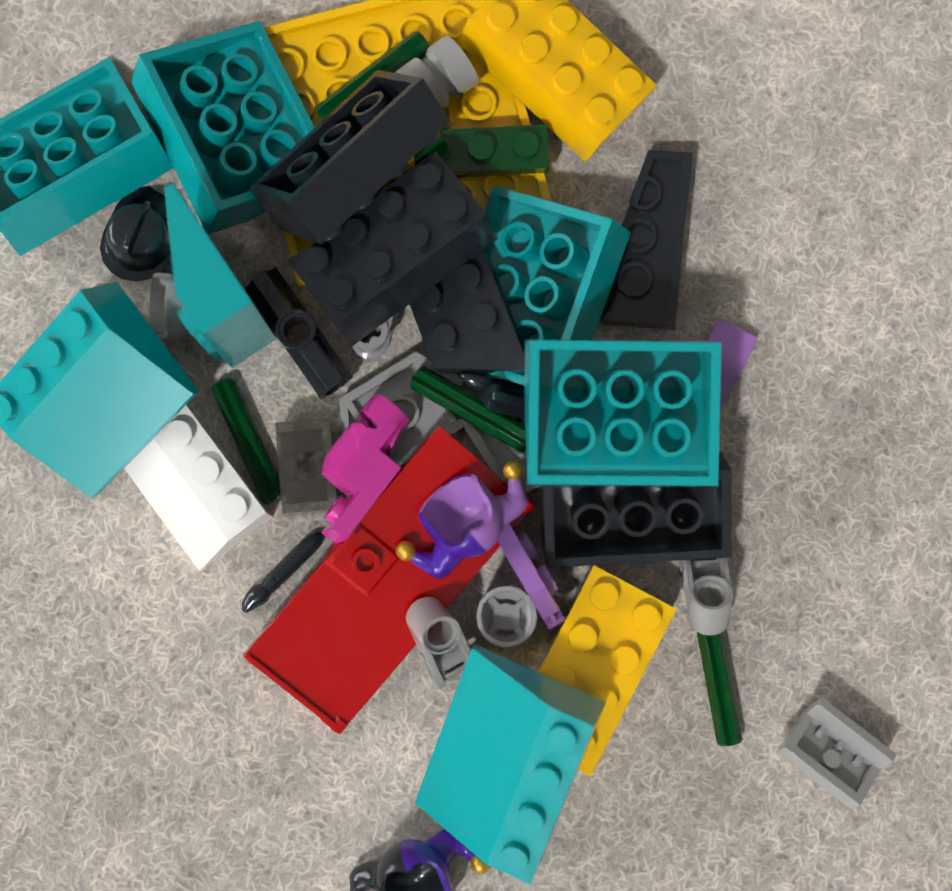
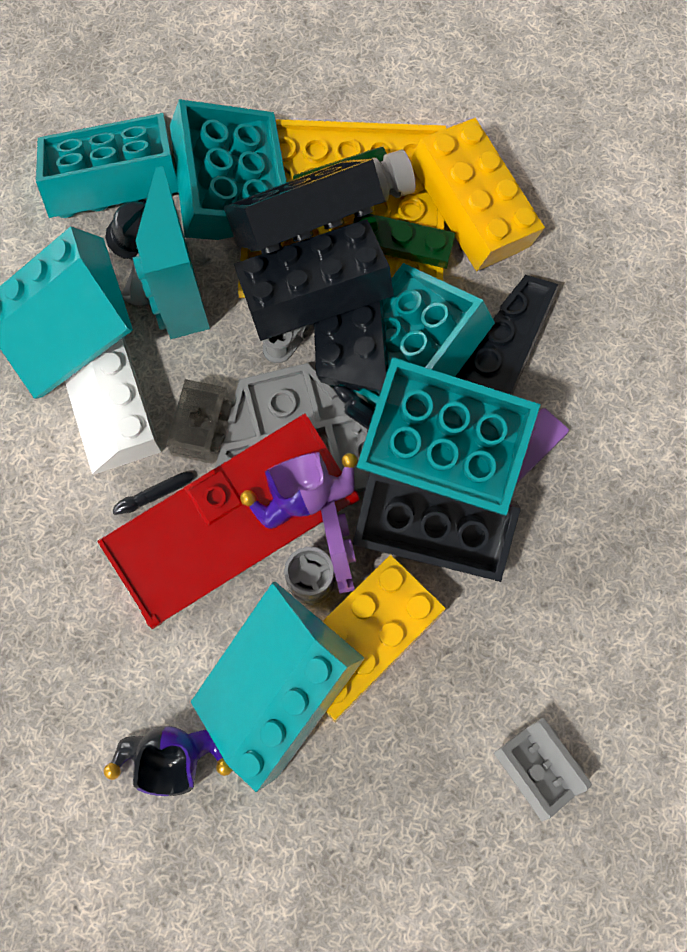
camera: 15 degrees right, 10 degrees down
(247, 440) = (162, 389): dark green axle -> none
(283, 311) = (232, 341): black piece -> none
(360, 465) = (237, 425): dark pink plate -> none
(442, 647) = (249, 581): light grey piece -> none
(469, 408) = (331, 410): dark green axle -> none
(707, 583) = (474, 606): light grey piece -> none
(720, 689) = (463, 679): dark green axle -> none

